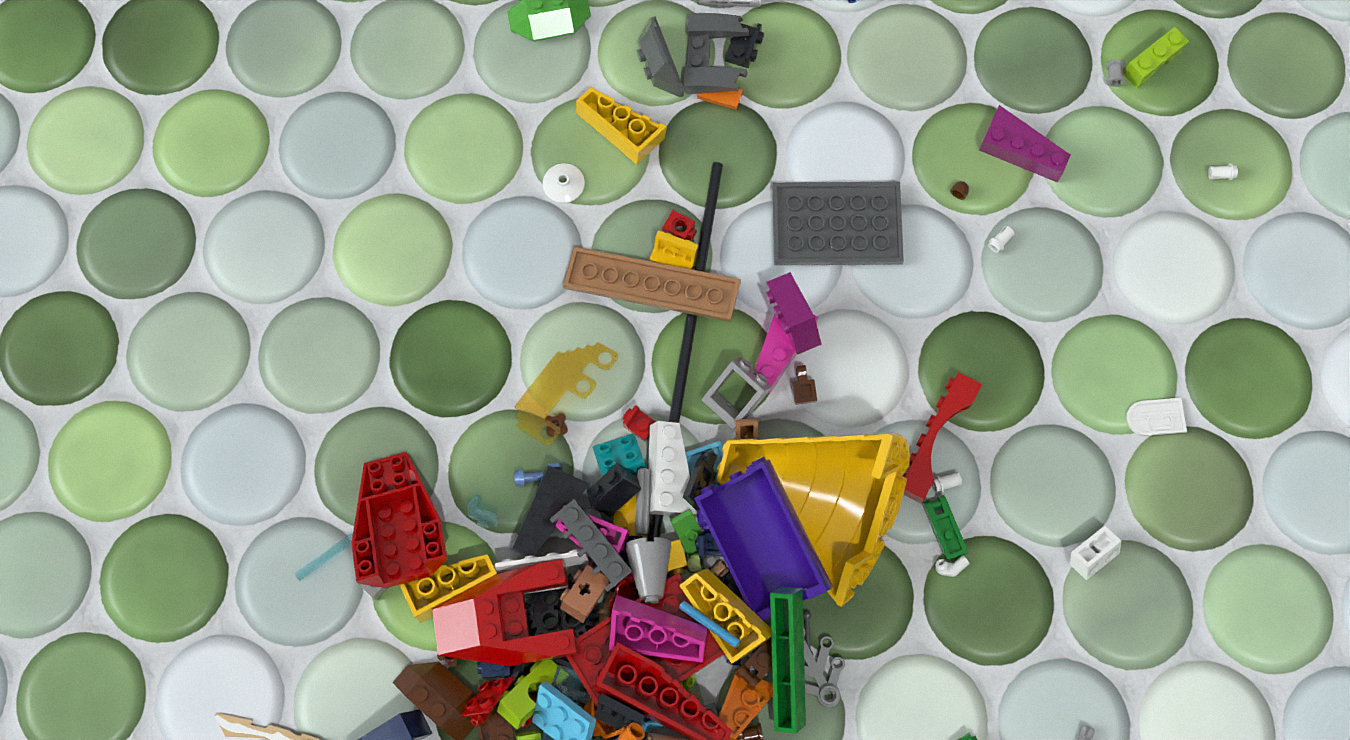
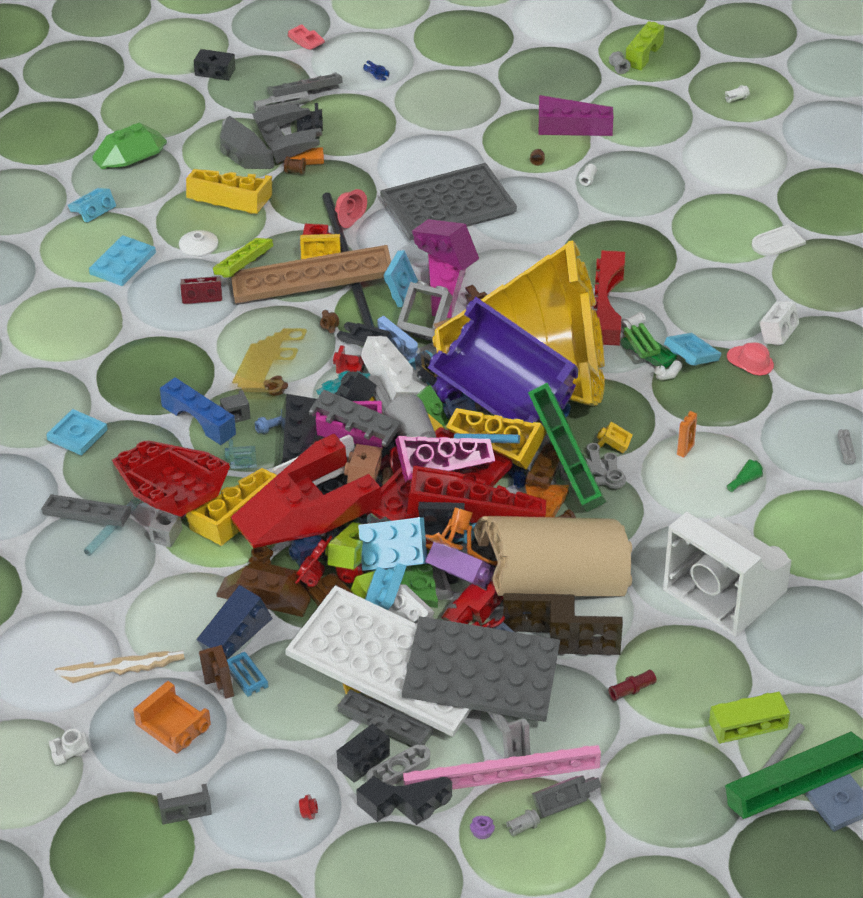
camera: 25 degrees left, 30 degrees down
(314, 525) = (86, 510): none -> dark grey tile
(344, 414) = (77, 432): none -> medium azure plate
(465, 435) = (215, 420): none -> blue arch
(479, 87) = (93, 204): none -> medium azure bracket
(479, 181) = (122, 260): none -> medium azure plate
(501, 444) = (237, 406): none -> dark grey brick
(537, 256) = (201, 289): none -> dark red bracket
(593, 232) = (242, 257): none -> lime plate
(643, 357) = (329, 321): none -> reddish brown plate
(667, 398) = (360, 332): none -> black hinge
(698, 414) = (402, 341): none -> light blue plate
(702, 107) = (295, 165): none -> reddish brown bush
(728, 198) = (351, 207): none -> coral piece
(734, 332) = (399, 276): none -> medium azure plate
(852, 640) = (614, 436): none -> yellow bracket
(923, 677) = (687, 434): none -> orange tile
(939, 501) = (645, 339): none -> bright green tile
(988, 551) = (692, 349): none -> medium azure plate
(1044, 581) = (751, 357): none -> coral piece

